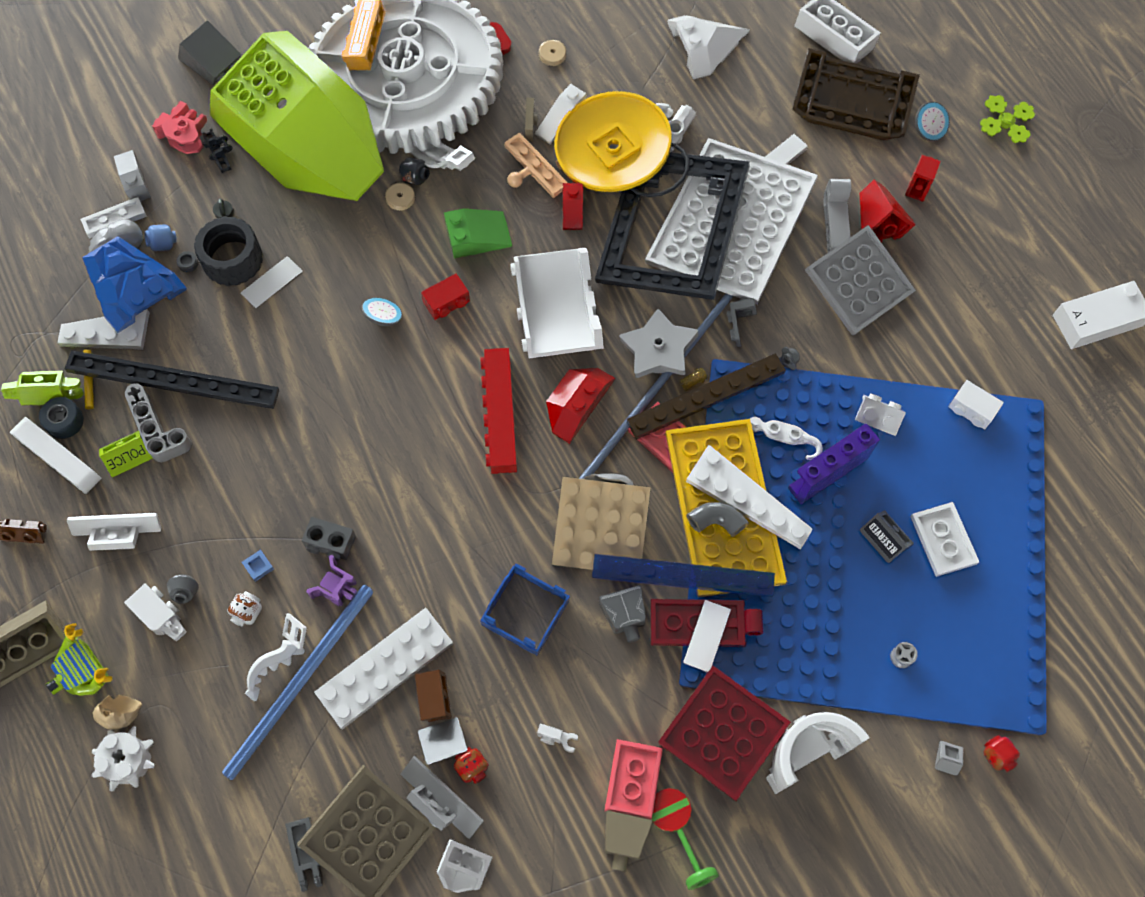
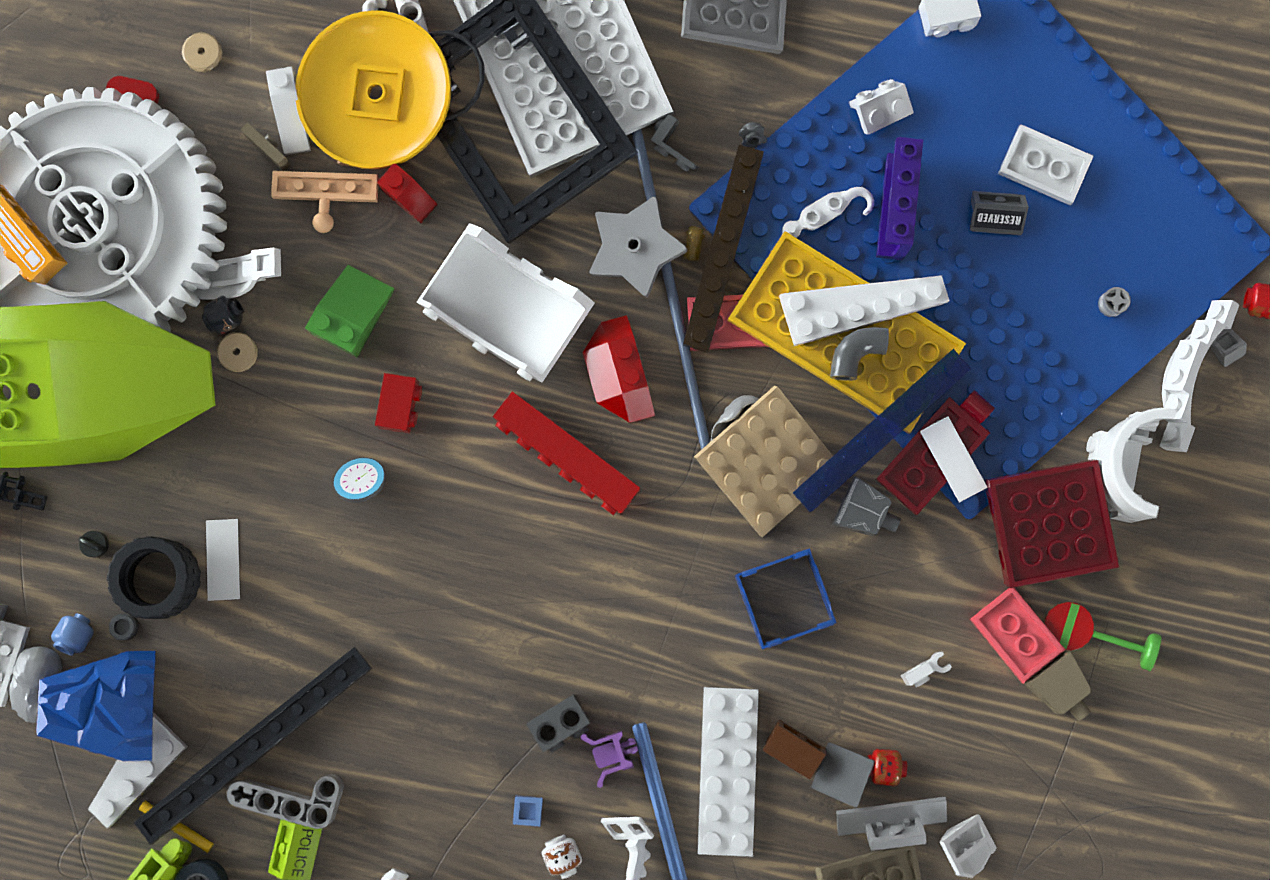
camera: 45 degrees left, 15 degrees up
(900, 737) = (1183, 370): none -> white piece

